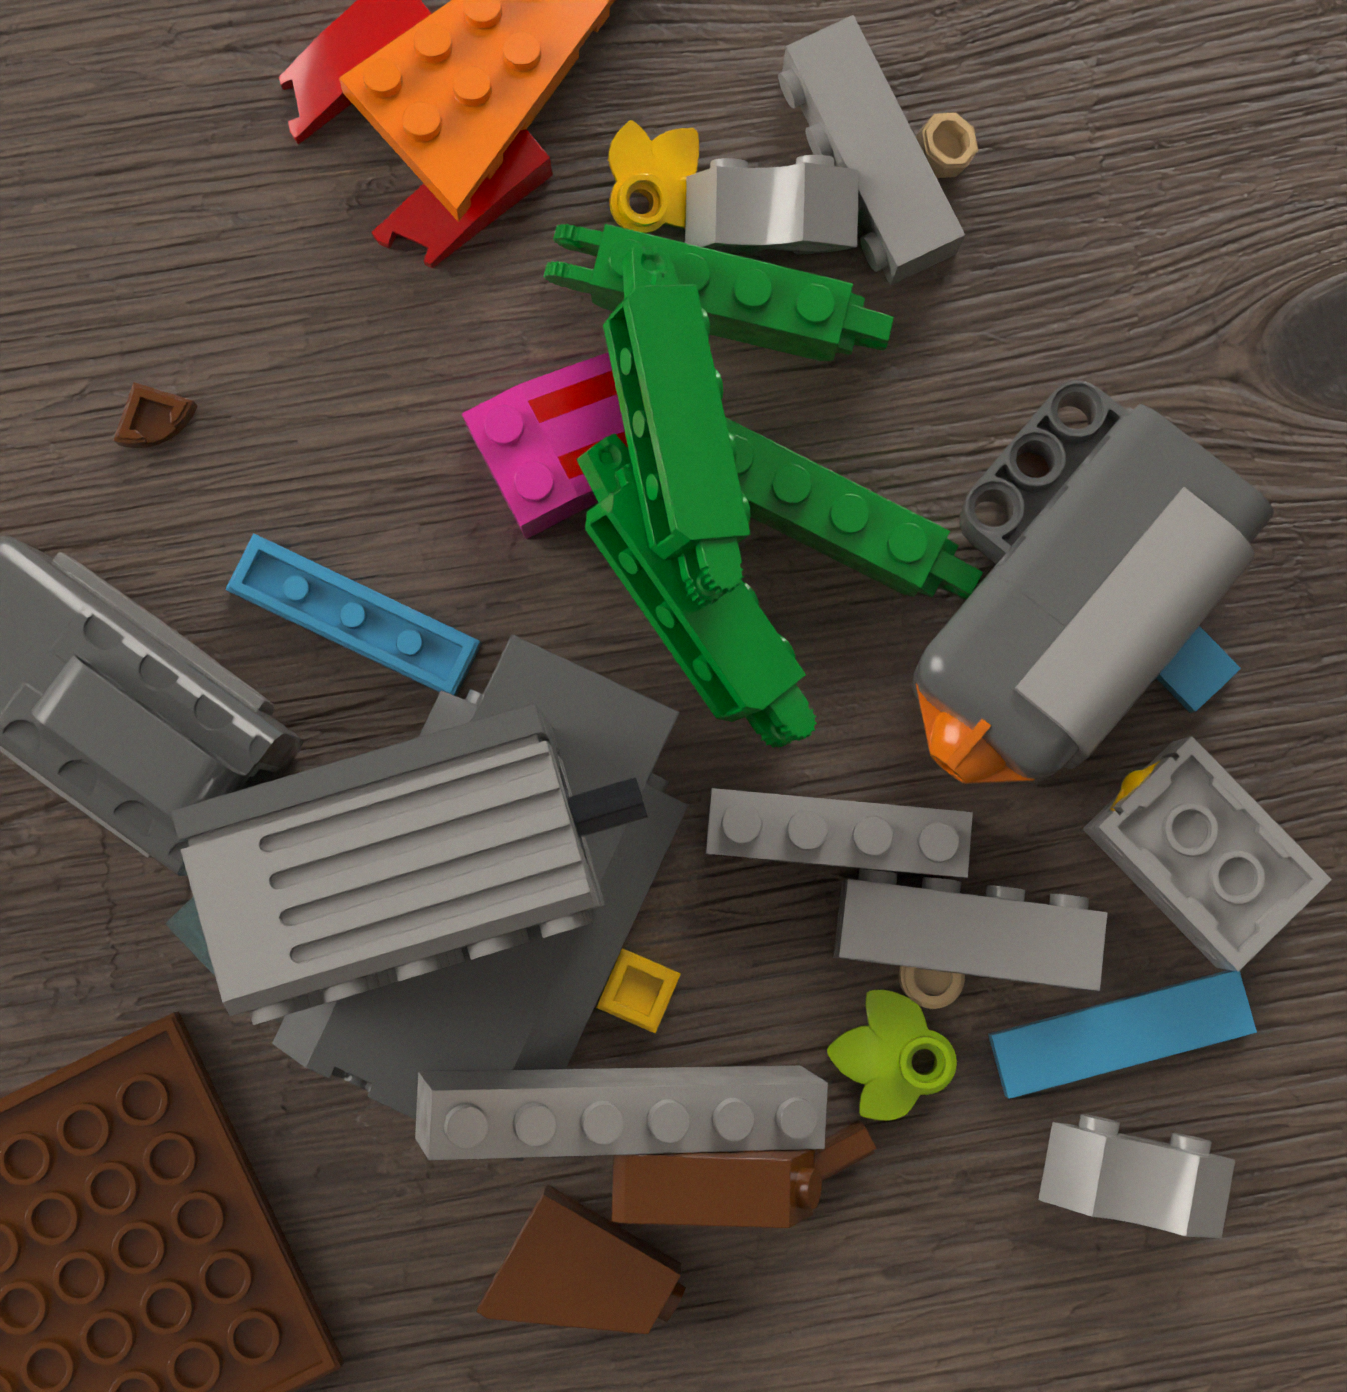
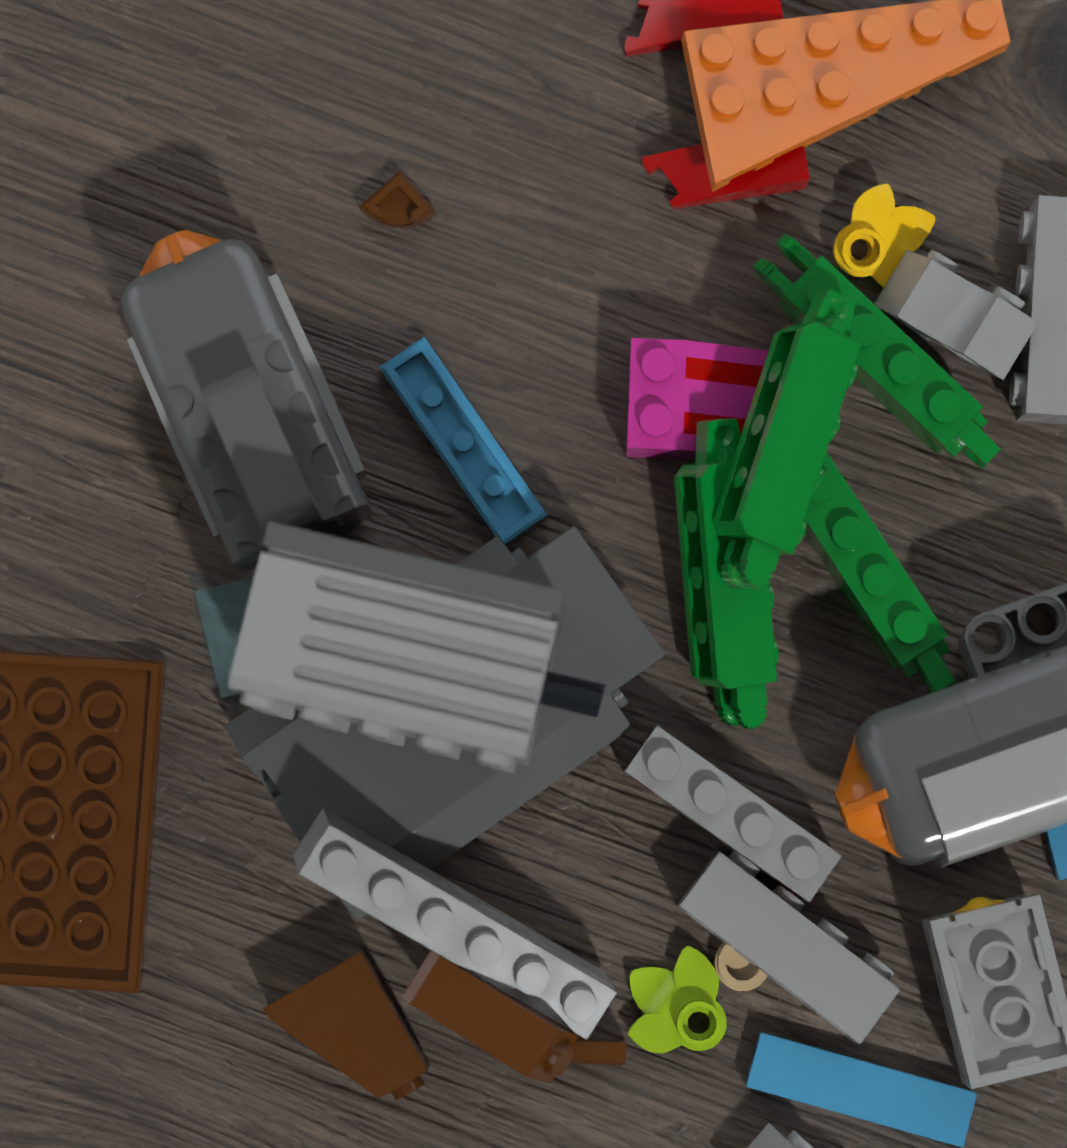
camera: 40 degrees right, 0 degrees up
(638, 990) = (515, 845): yellow tile -> none

